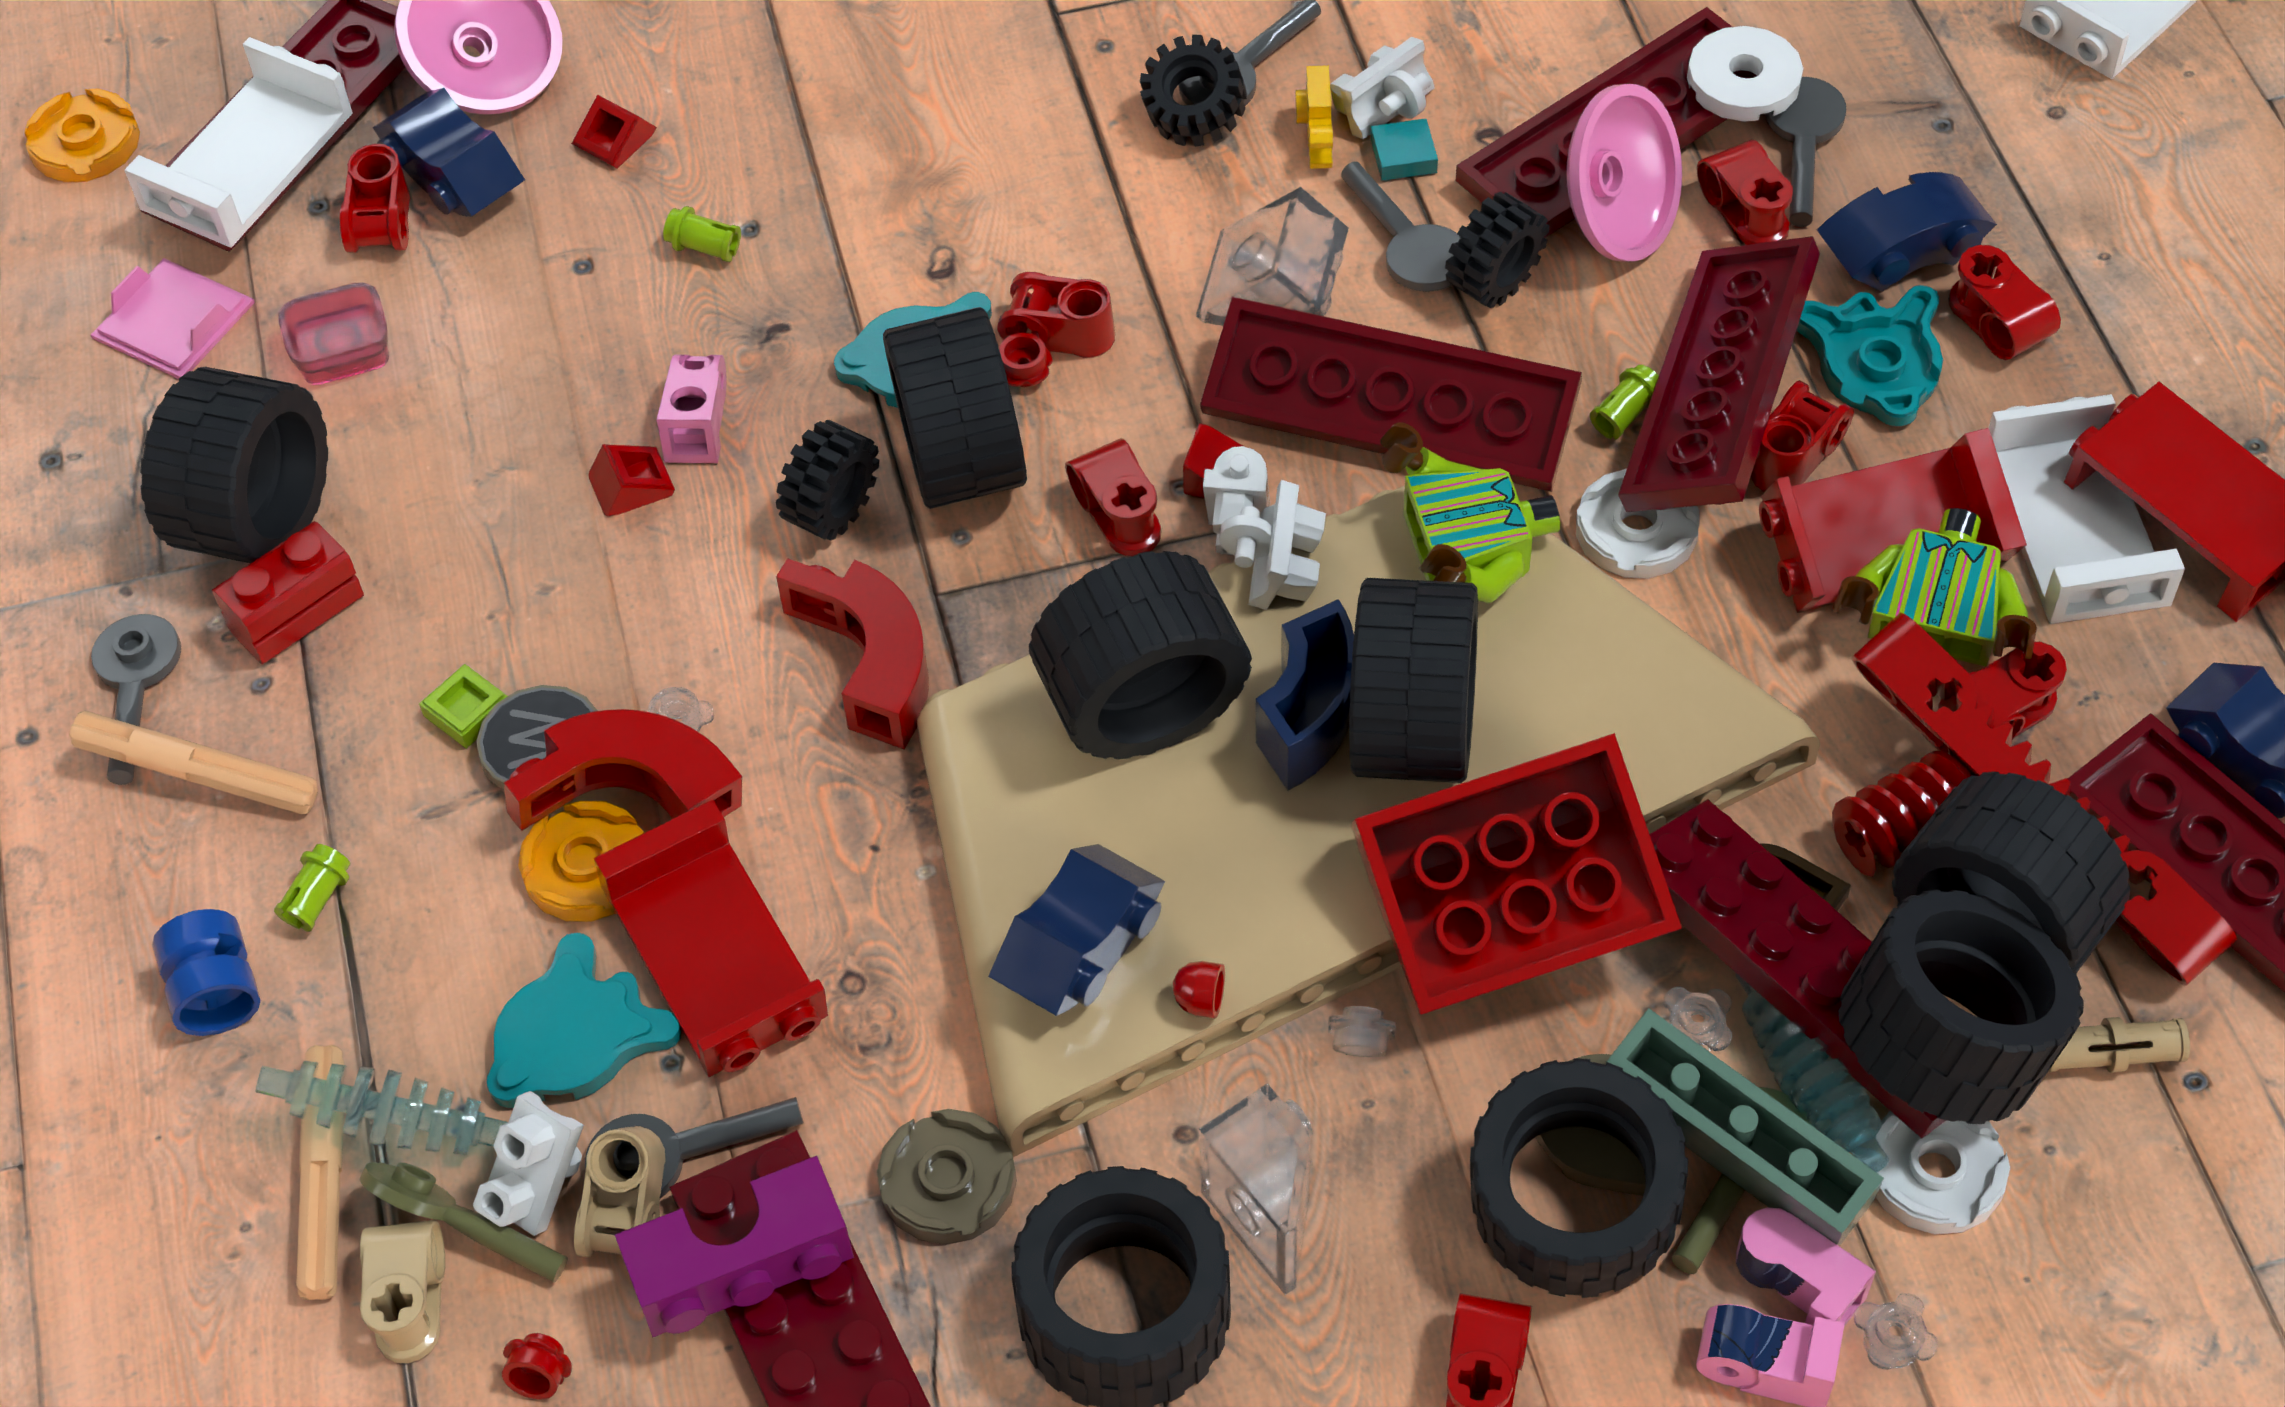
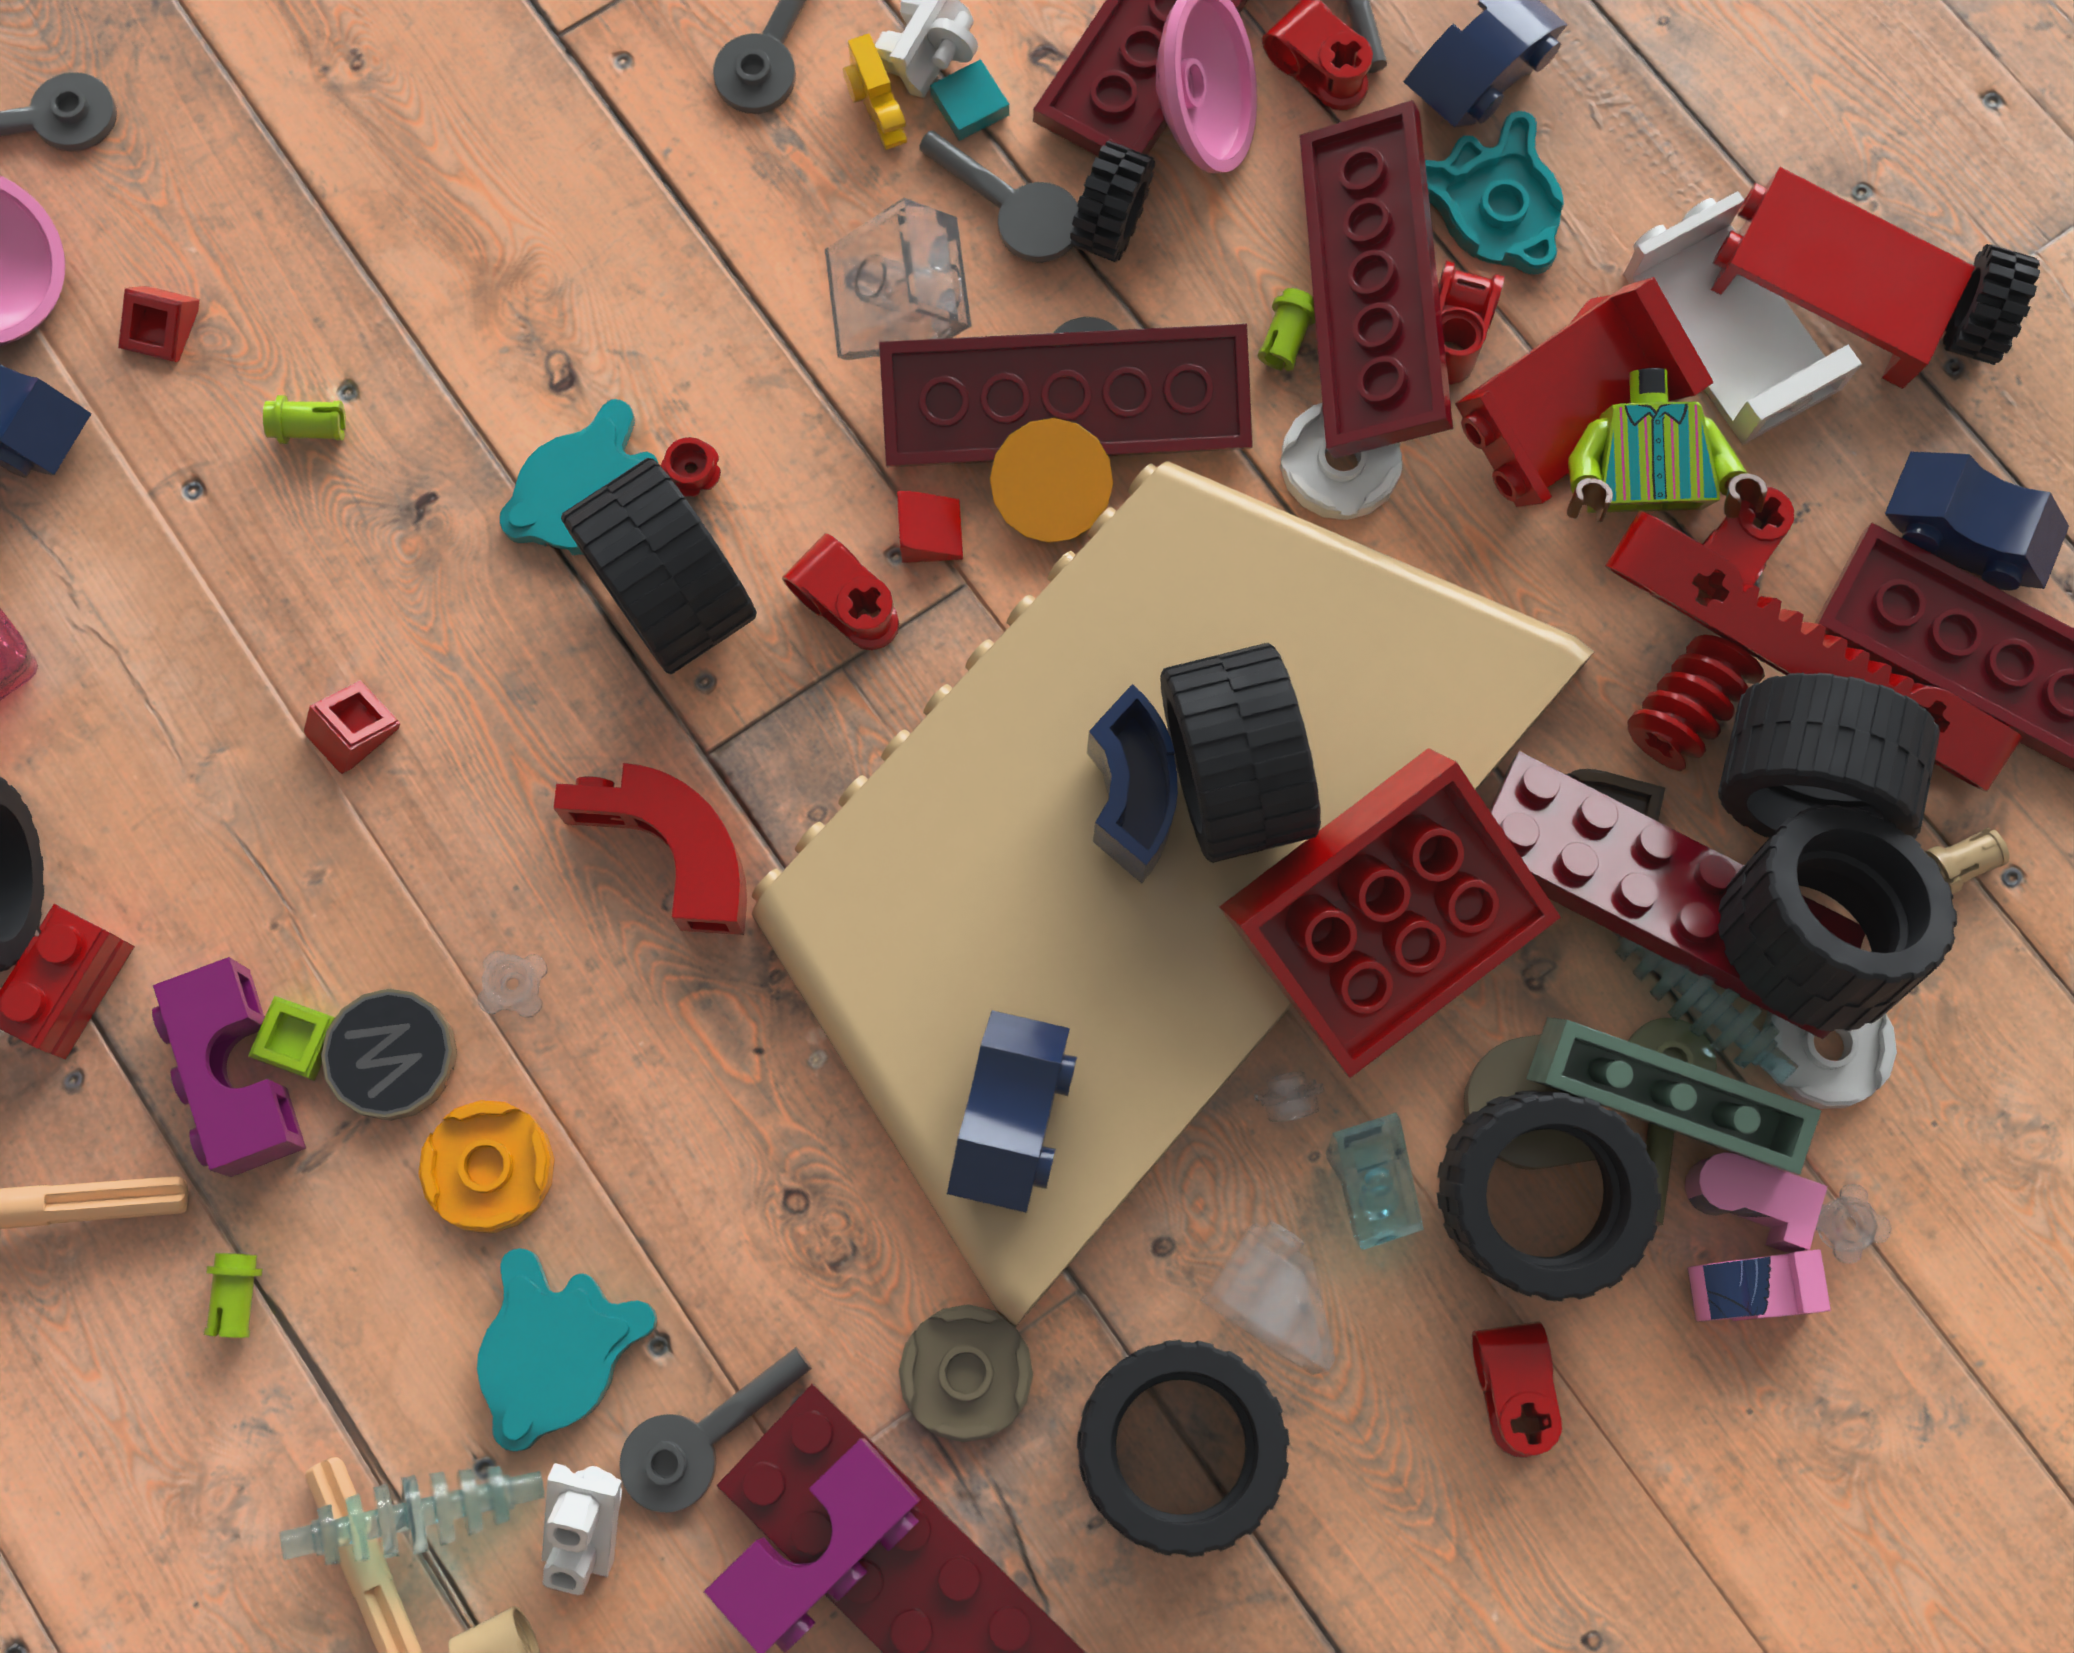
camera: 25 degrees left, 20 degrees up
(206, 972) = (168, 1432): blue wheel -> none
(395, 660) = (203, 1020): none -> magenta arch
(417, 1193) = (488, 1589): olive piece -> none
(615, 1199) = (679, 1526): tan piece -> none
(628, 752) = (489, 1045): red arch -> none
(692, 409) = (382, 629): bright pink leg -> none
(710, 940) = (652, 1221): red panel -> none
(827, 479) = (557, 678): black tyre -> none
(1063, 312) = (699, 402): red piece -> none
(1139, 655) = (966, 812): black tyre -> none
(1188, 62) = (715, 73): black tyre -> none
(1200, 988) = (1142, 1128): red hinge -> none
(1234, 483) = (967, 568): white hips -> none
(1270, 543) = (1027, 624): white hips -> none
(1339, 454) = (1051, 480): none -> light orange tile
(1414, 1121) = (1376, 1180): none -> clear light blue slope
(1466, 517) = (1208, 541): torso -> none
(1712, 1006) = (1566, 987): clear plate -> none
(2003, 311) = (1600, 115): red piece -> none

